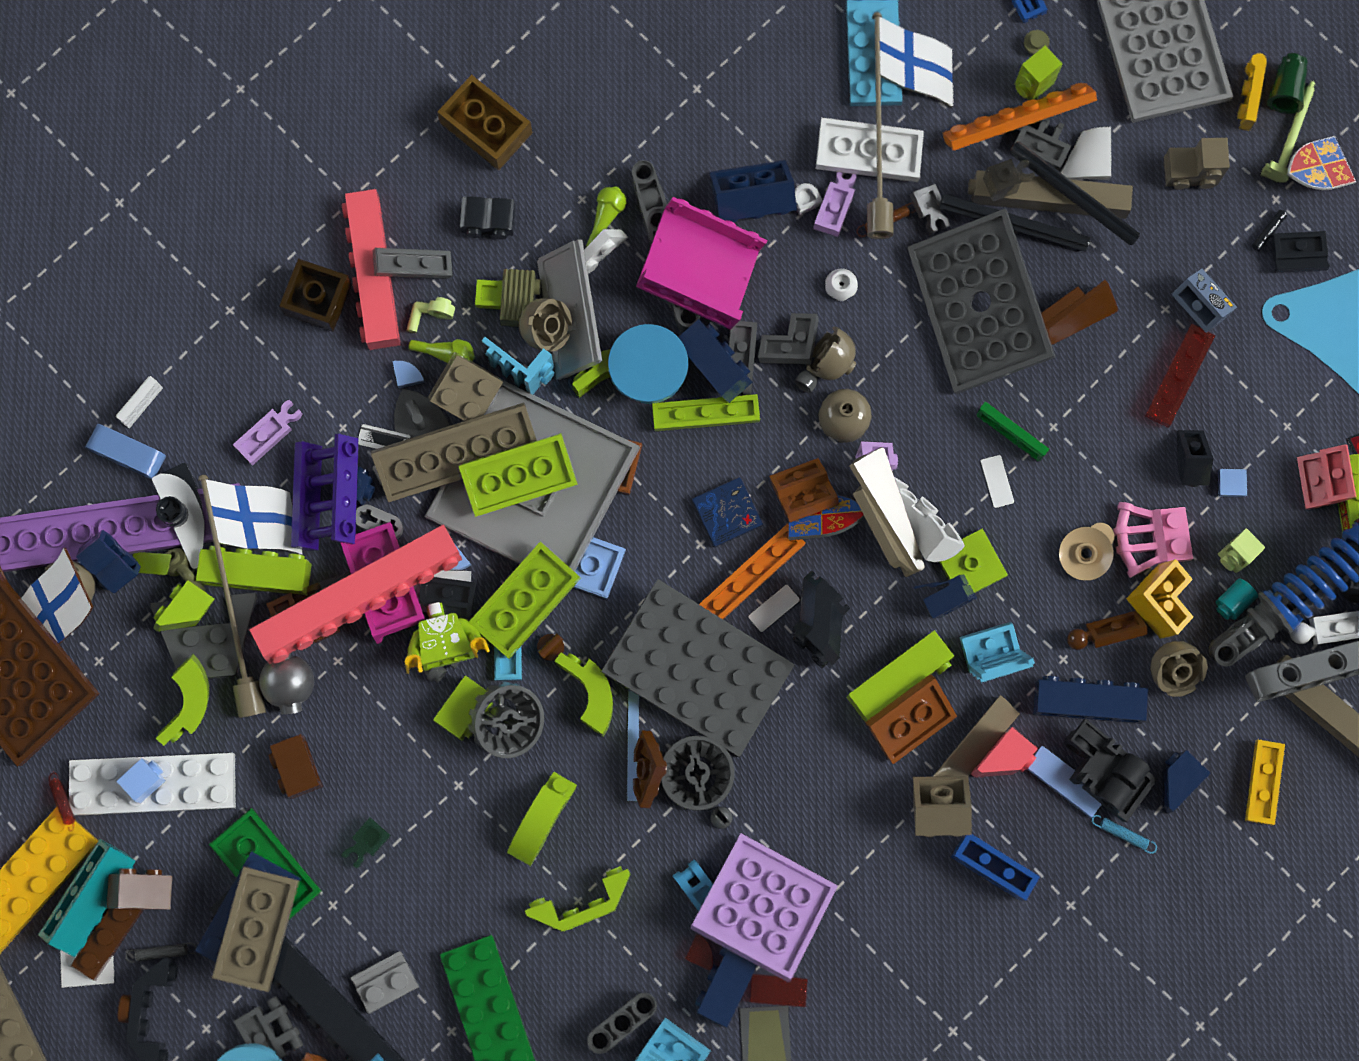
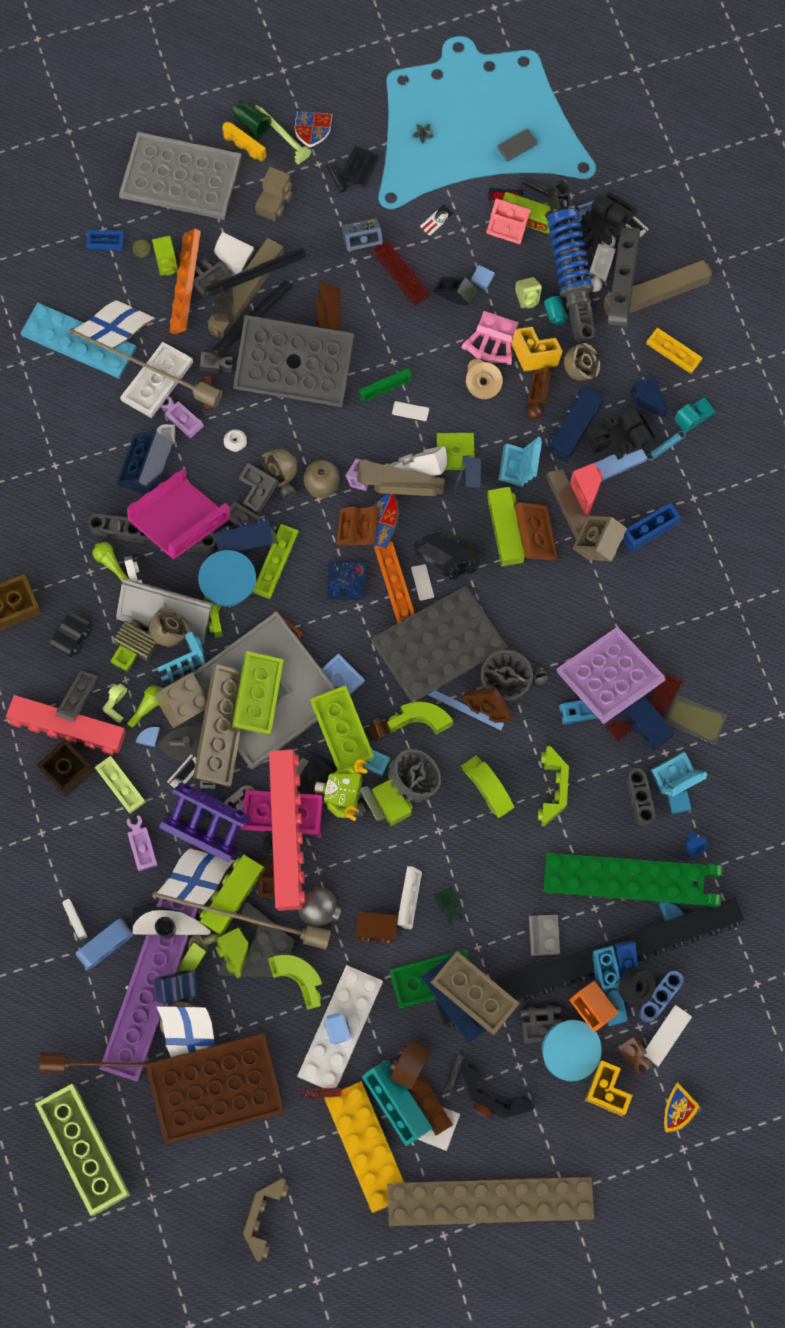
camera: 65 degrees left, 5 degrees down
(329, 370) = (120, 784): none -> yellowish green plate
(351, 789) = (409, 897): none -> white tile
(450, 684) = (374, 807): none -> white sticker
(1188, 852) = (691, 416): none -> teal plate
(1281, 385) = (436, 220): none -> sticker

